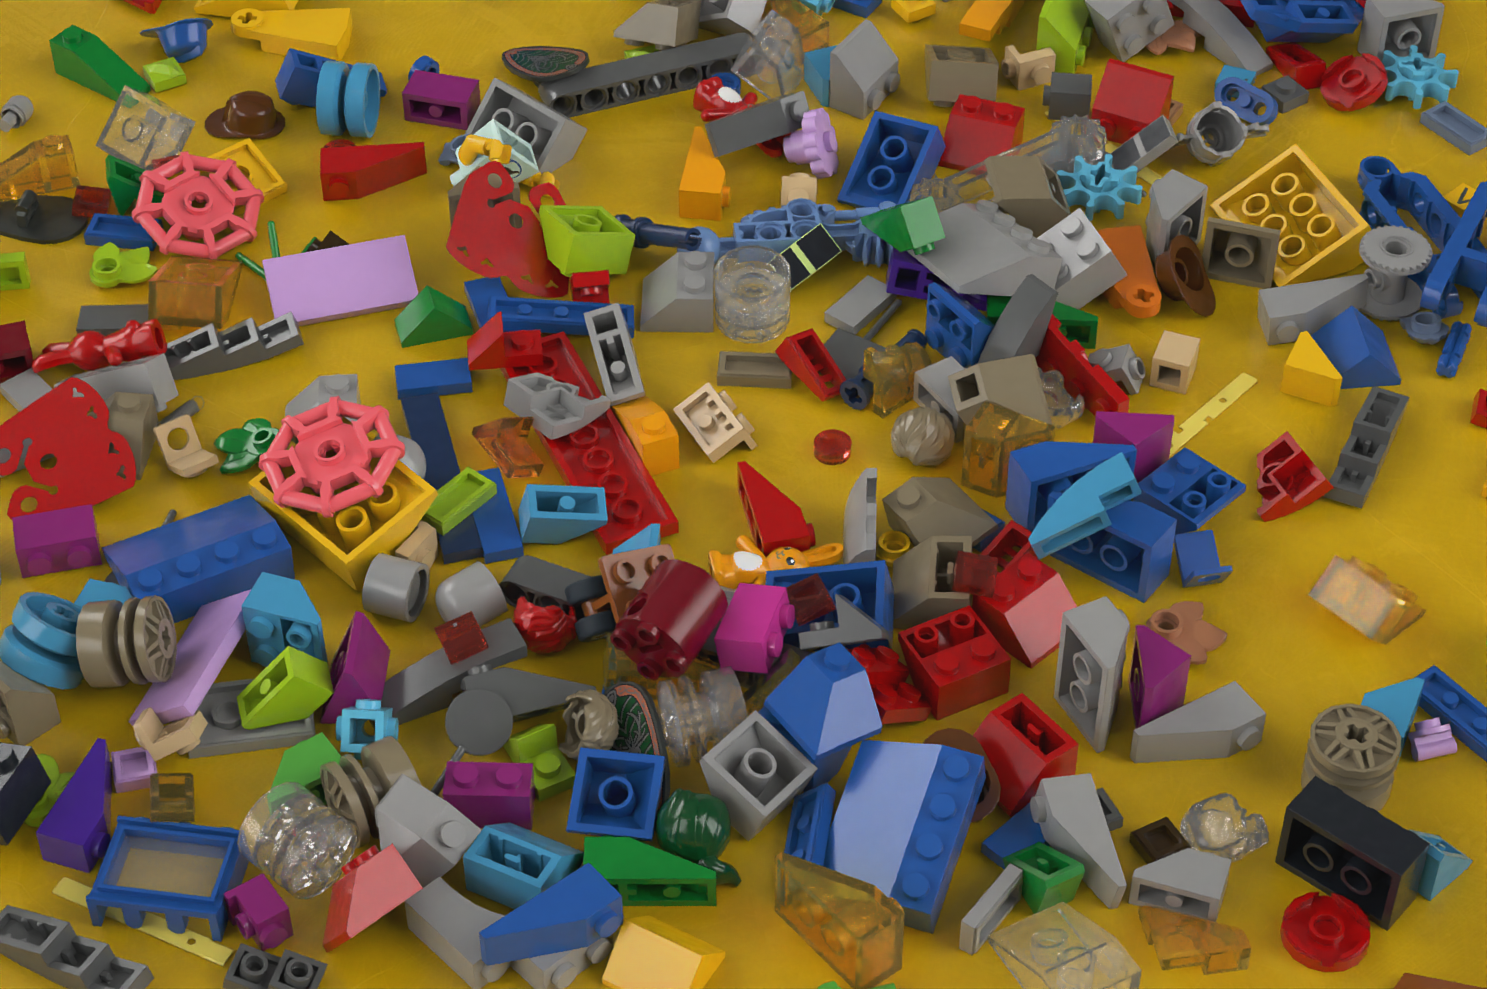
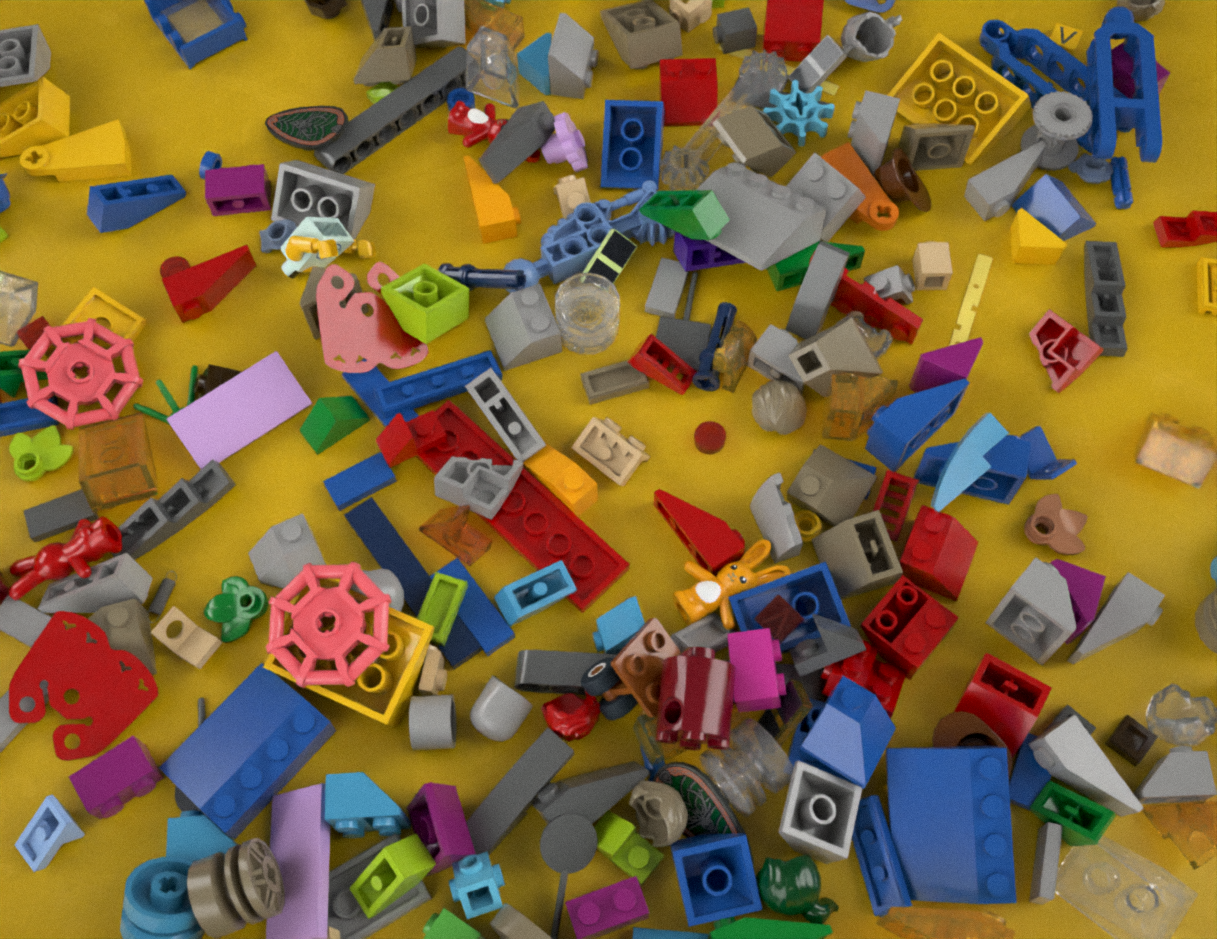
camera: 20 degrees left, 20 degrees up
(246, 116) = (77, 260): reddish brown piece -> none
(348, 99) = (162, 220): dark azure wheel -> none
(461, 638) = (518, 767): clear red tile -> none
(590, 286) = (450, 347): red slope -> none
(955, 326) = (763, 295): blue slope -> none
(975, 574) = (900, 549): clear red tile -> none
(1189, 490) = (1010, 395): blue slope -> none

